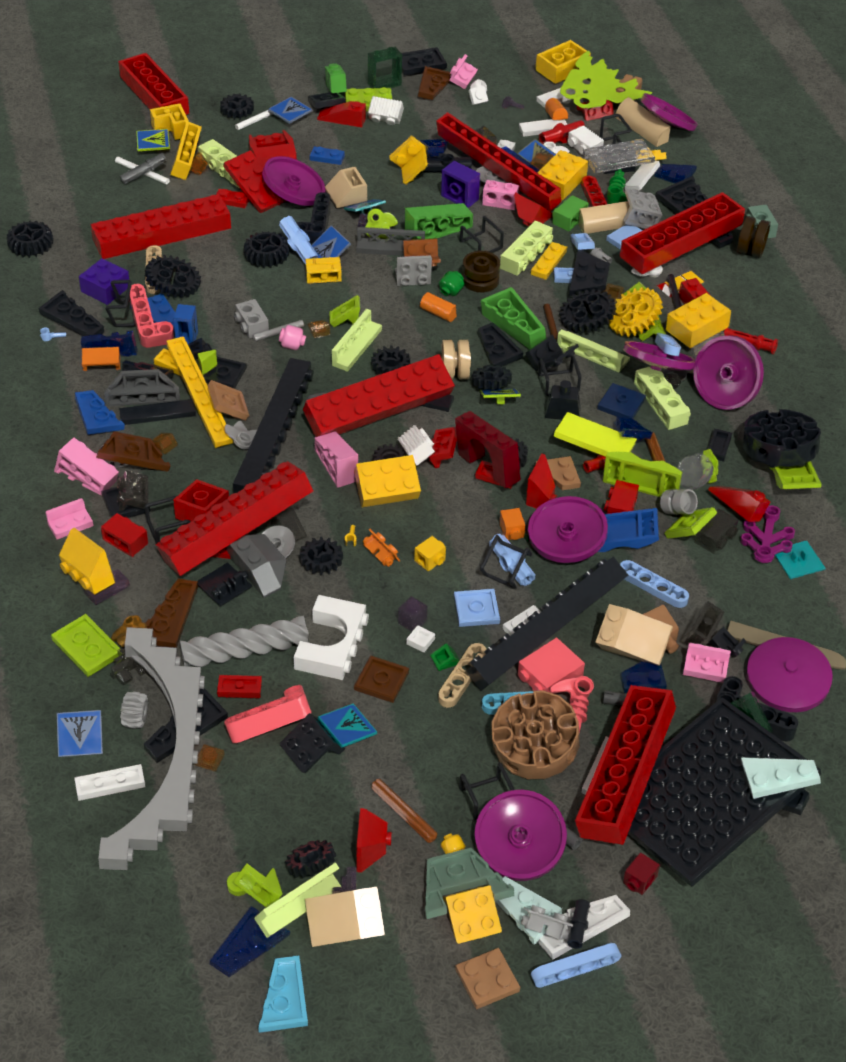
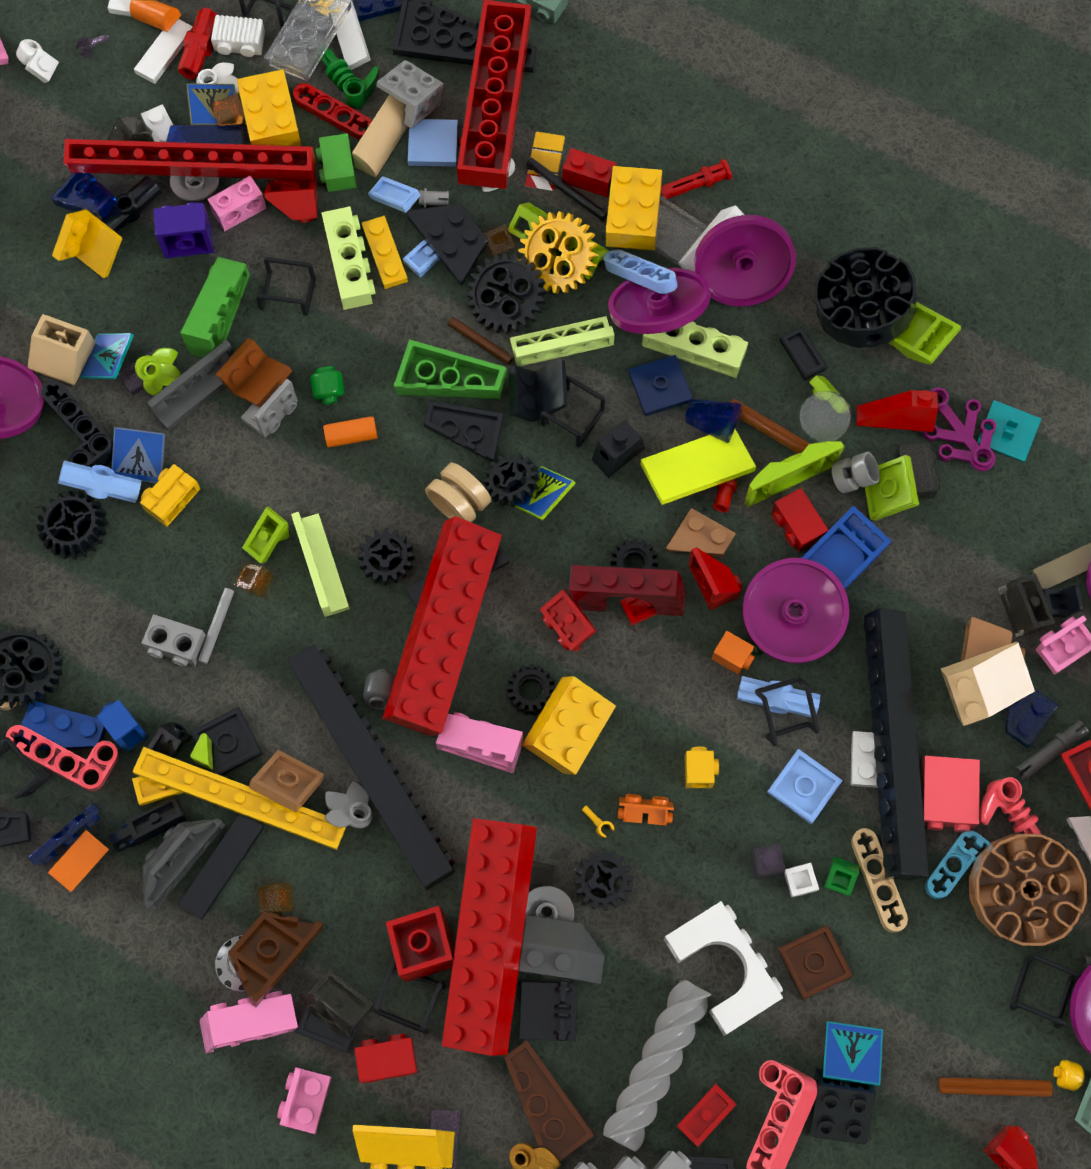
camera: 45 degrees left, 25 degrees up
(95, 414) = (162, 938): blue wing -> none
(292, 337) = (247, 625): bright pink head -> none
(417, 443) = (544, 648): white brick -> none
(481, 271) = (341, 339): dark brown wheel -> none
(655, 581) = (924, 595): light blue beam -> none
(751, 236) = (564, 32): dark brown wheel -> none

